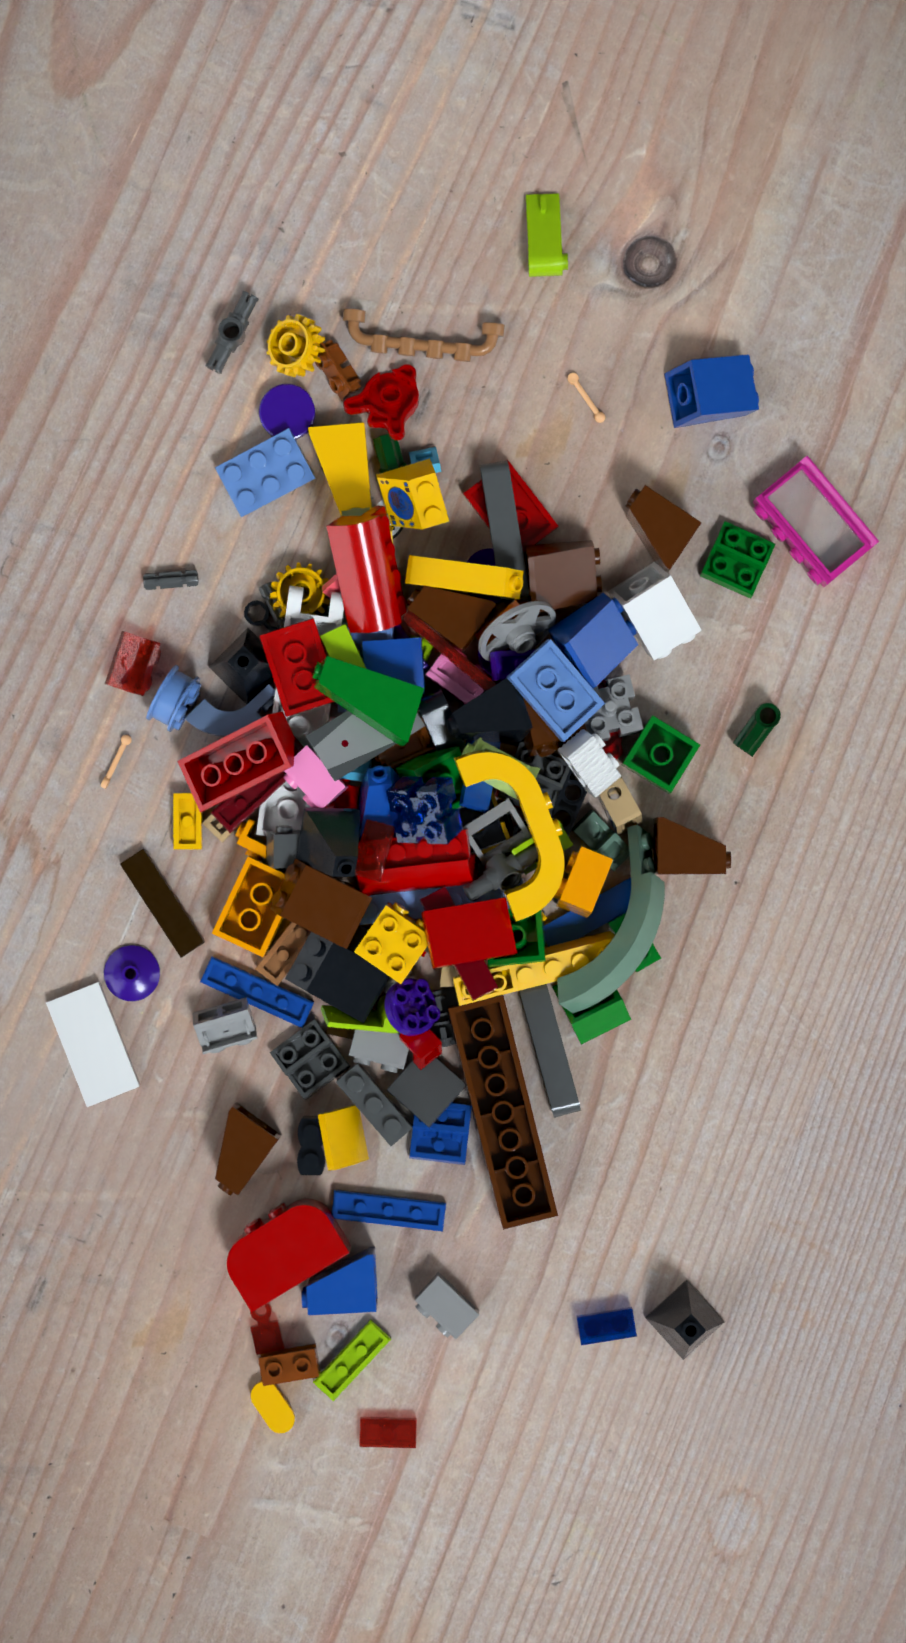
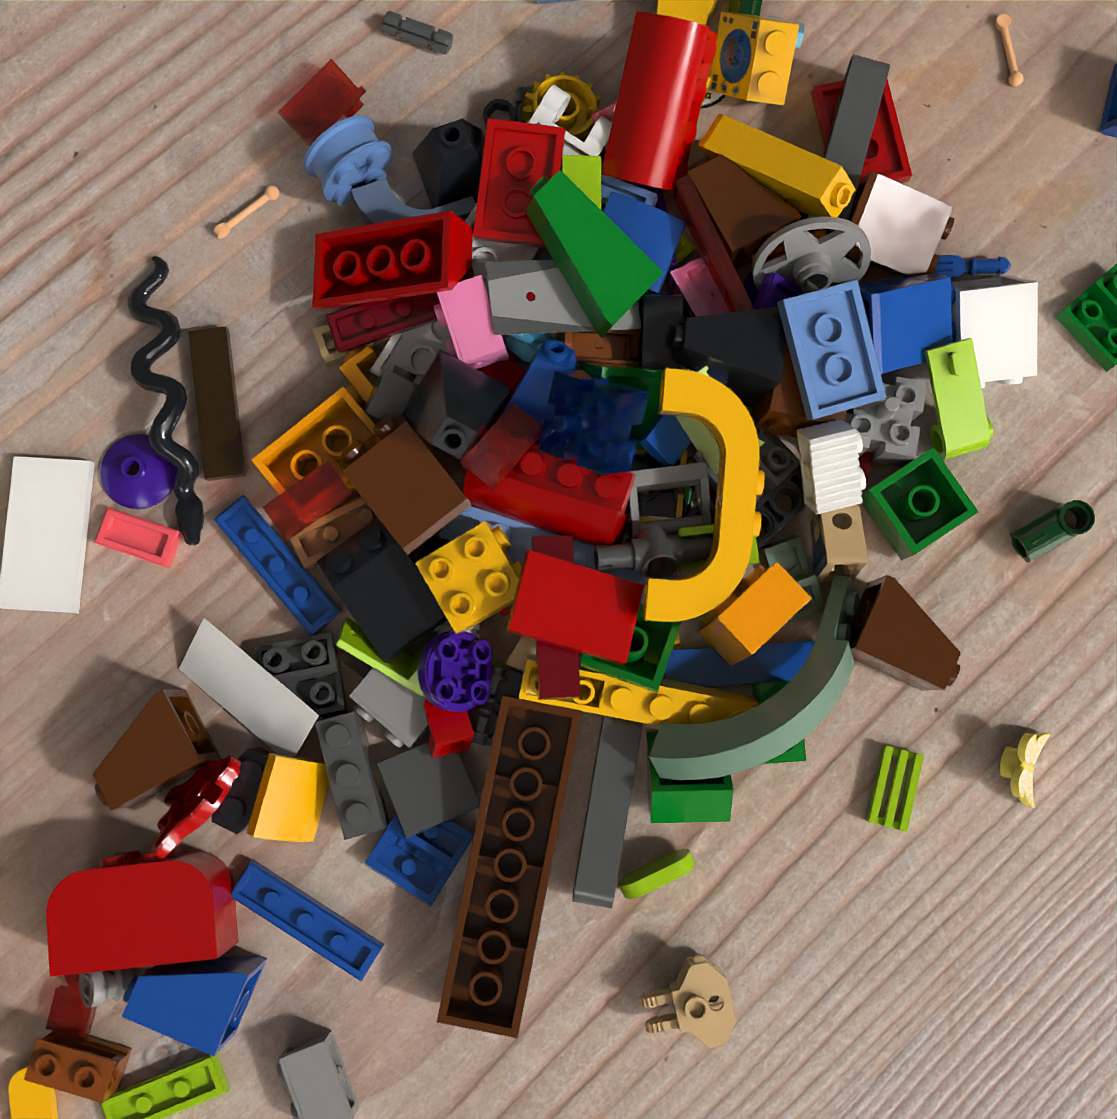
camera: 25 degrees right, 5 degrees down
(155, 1017) = (138, 537): none -> coral tile
(178, 980) = (189, 506): none -> black animal
(186, 823) = (293, 321): yellow plate -> none
(224, 1026) = (214, 587): light grey hinge -> none
(262, 942) = (307, 500): none -> clear red tile
(280, 1083) = (247, 691): none -> white sticker
(282, 1307) = (103, 985): none -> light grey wheel
(285, 1167) = (194, 802): none -> red tile
(600, 1074) = (656, 874): none -> lime tile
(615, 574) = (954, 266): none -> blue piece
(655, 673) = (957, 400): none -> lime door
(660, 525) = (1044, 222): reddish brown slope -> none
(662, 1149) = (693, 1012): none -> tan hinge
(742, 952) = (909, 791): none -> lime tile
(802, 894) = (1019, 765): none -> light yellow animal

